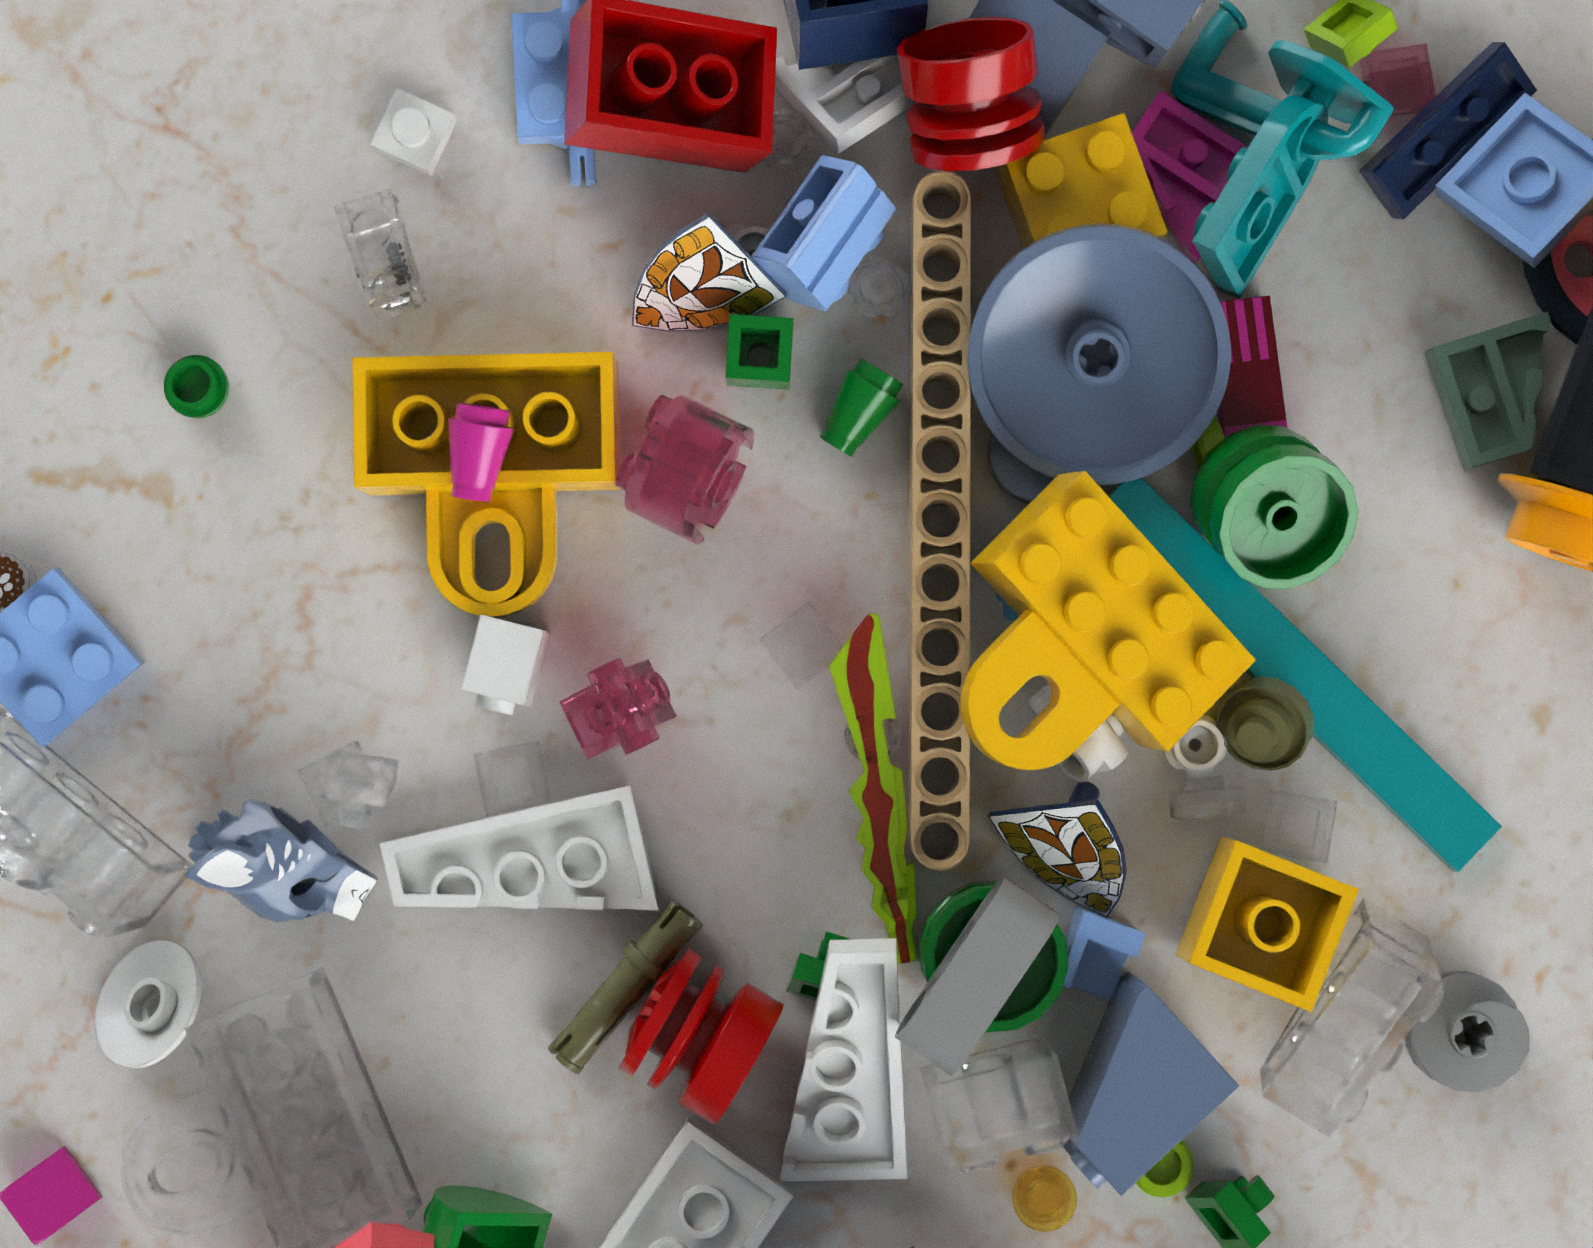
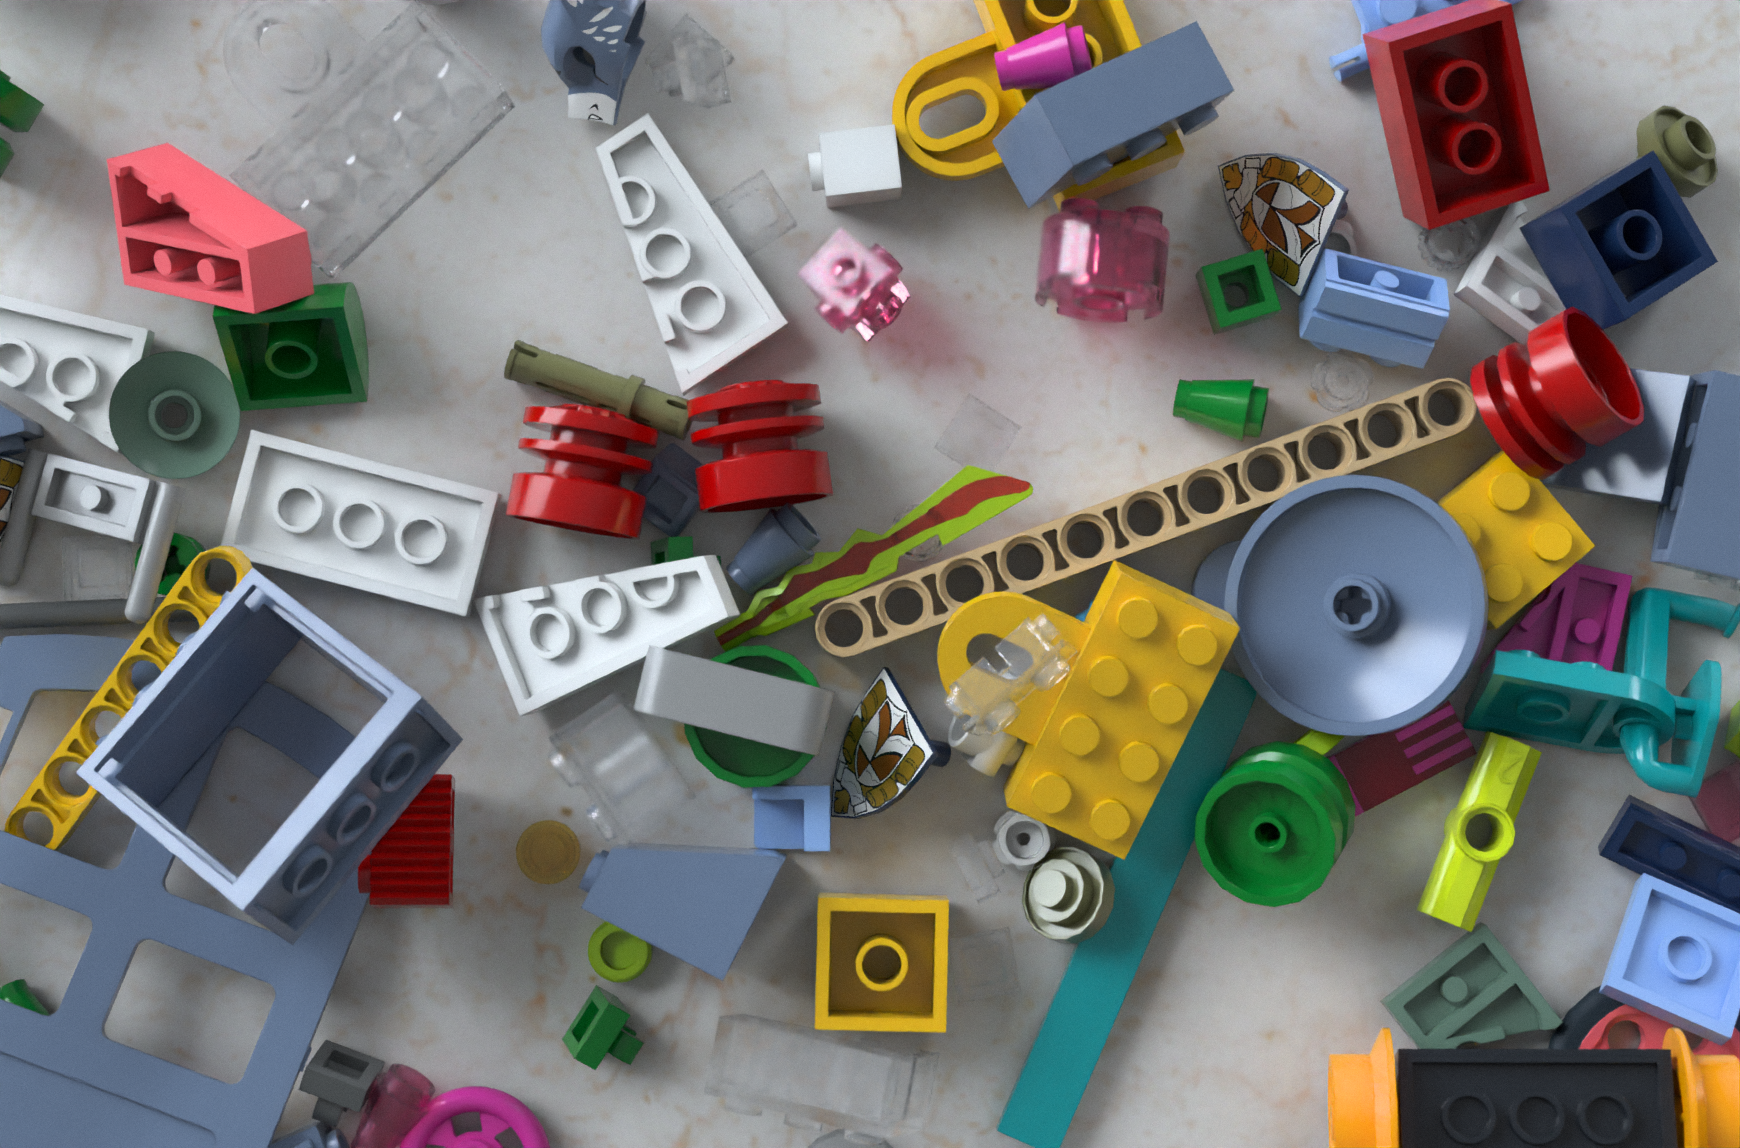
camera: 70 degrees right, 0 degrees up
(553, 405) = (1112, 113): none -> sand blue wedge
(739, 857) = (759, 447): none -> red wheel
(745, 949) = (671, 490): none -> sand blue slope
(837, 877) = (773, 548): none -> sand blue cone
(1063, 728) = (994, 696): none -> clear hinge
(1375, 350) = (1497, 791): none -> neon yellow piece

